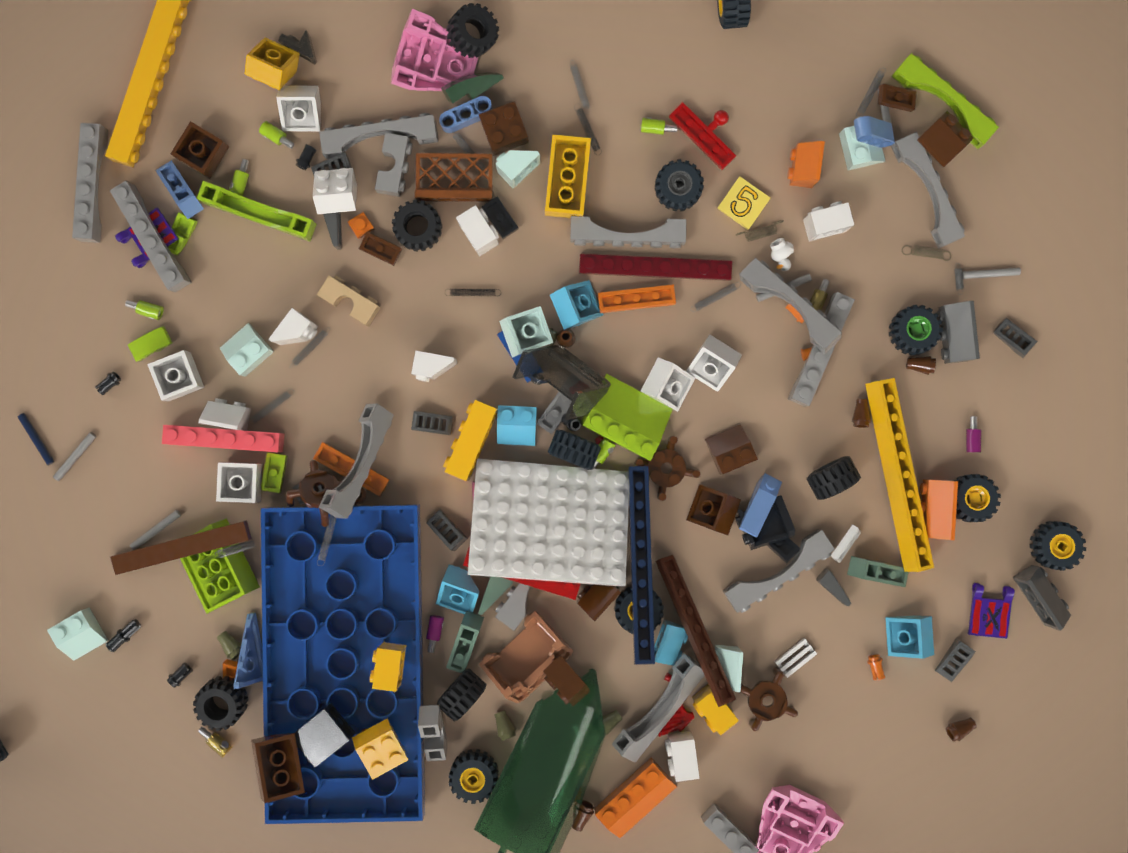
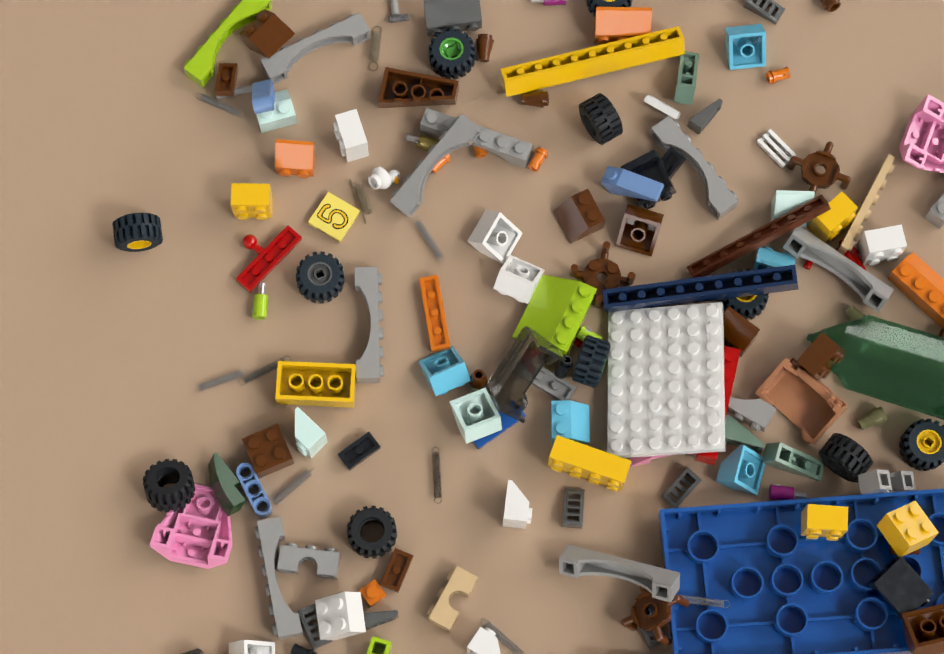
camera: 90 degrees left, 15 degrees down
(342, 464) = (624, 592): orange plate -> none
(454, 194) = (336, 503): dark orange fence -> none
(476, 229) = (375, 468): white brick -> none
(655, 267) = (401, 299): dark red plate -> none
(734, 749) = (864, 211): none -> tan plate
(762, 118) = (251, 201): none -> yellow brick
(795, 411) = (537, 159): none -> orange pin
(796, 282) = (411, 166): light grey bar -> none
(877, 284) = (415, 89): none -> reddish brown wedge

